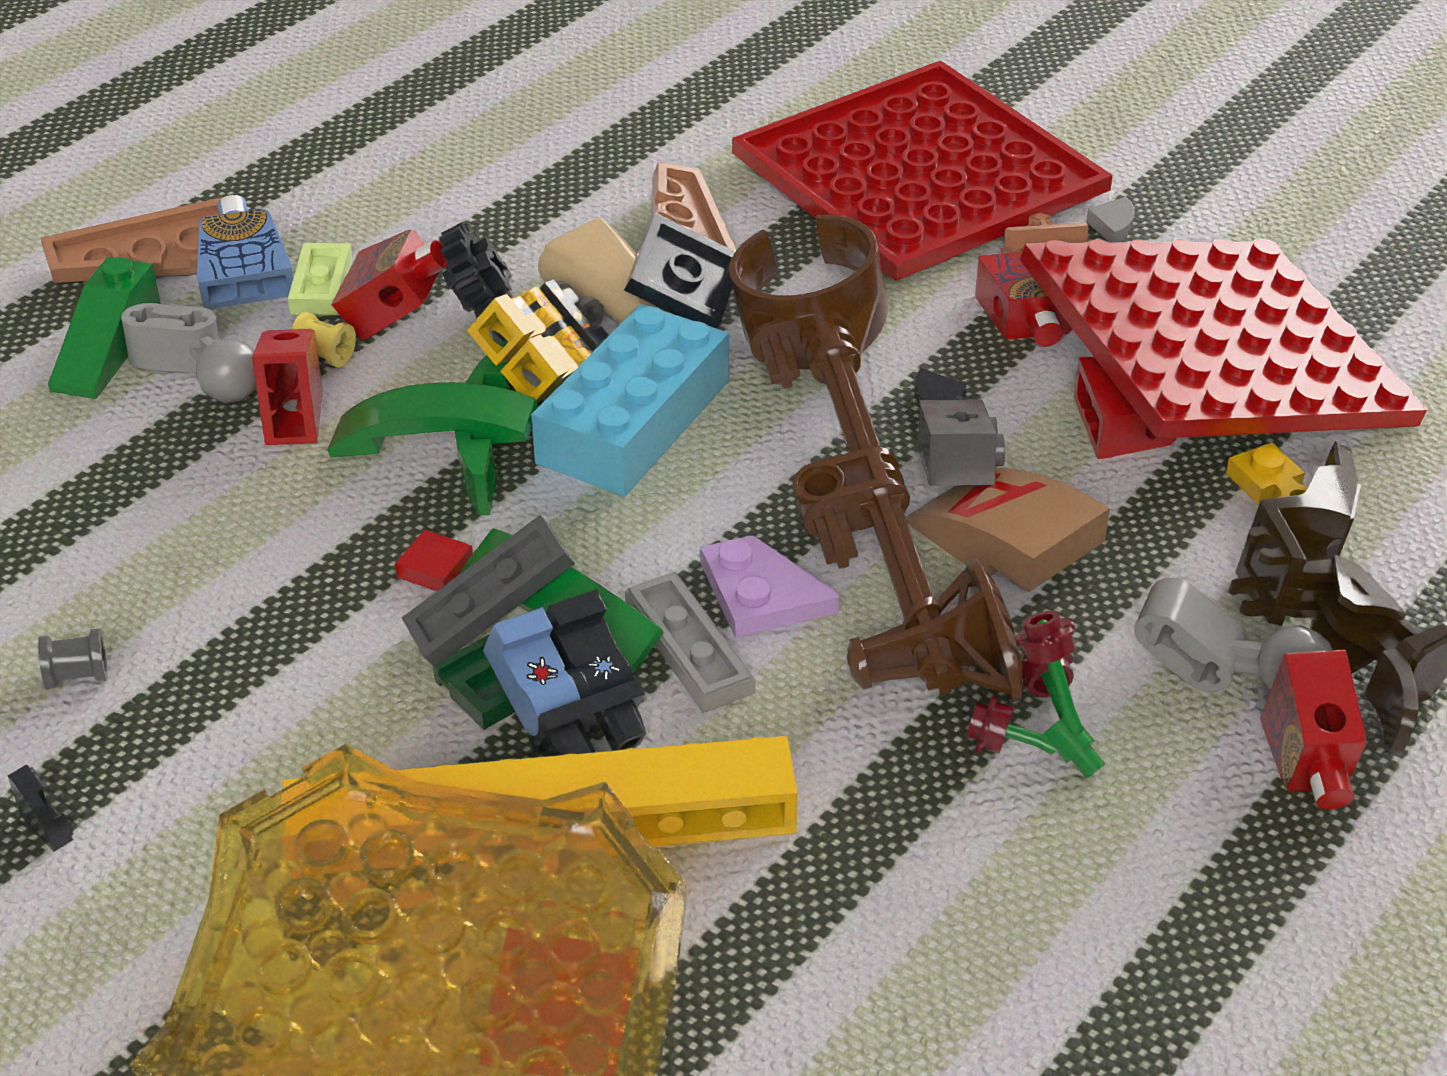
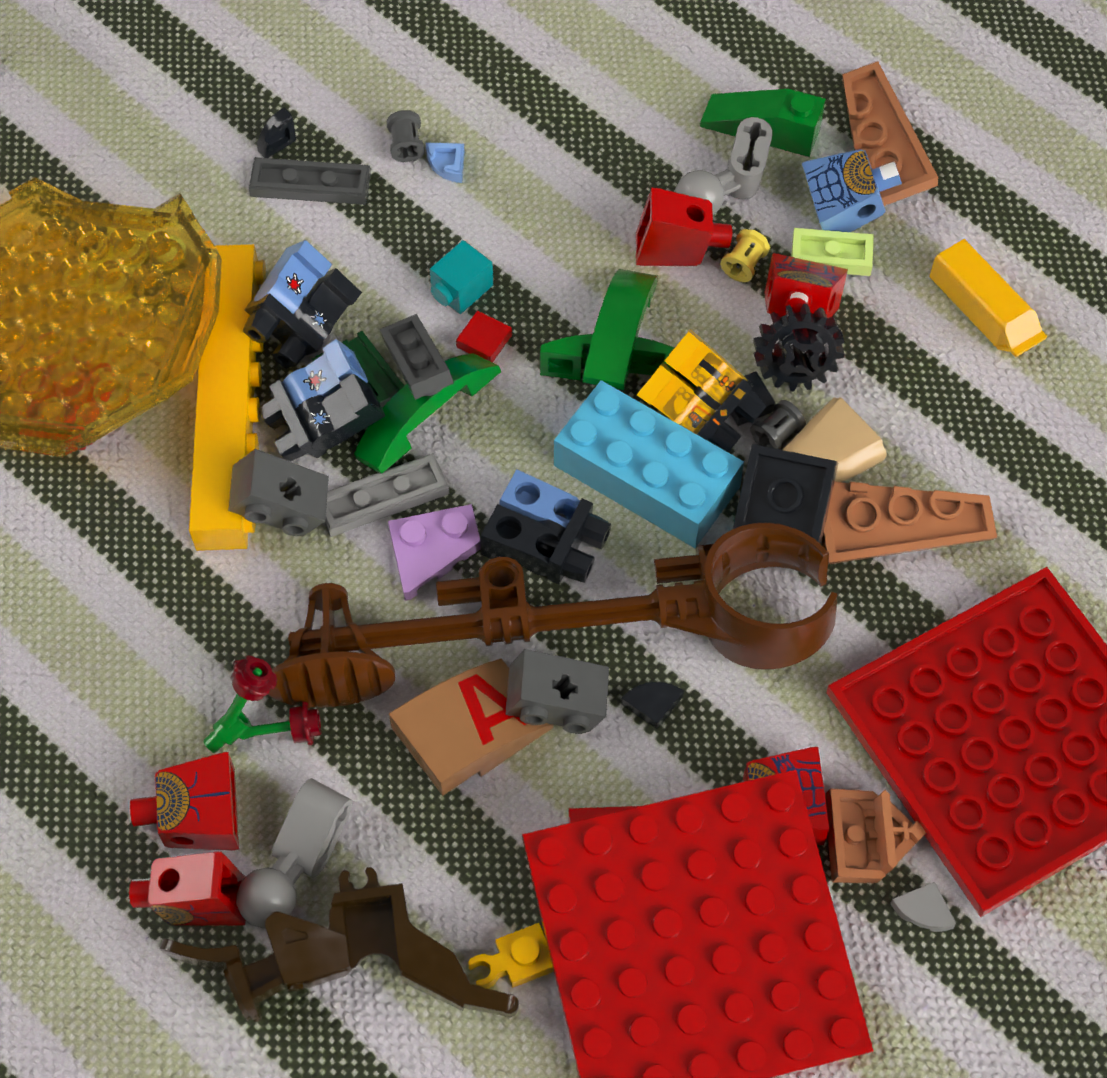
camera: 95 degrees right, 20 degrees up
(122, 620) = (446, 160): none -> light blue tile
(132, 774) = (310, 181): none -> dark grey tile
(341, 577) = (461, 277): none -> teal brick
(393, 175) = (986, 299): none -> yellow piece
(425, 729) = (299, 303): none -> black hips
(728, 703) = (278, 493): none -> dark grey brick
(730, 481) = (544, 529): none -> black hips
(1190, 758) = (193, 805): none -> red torso

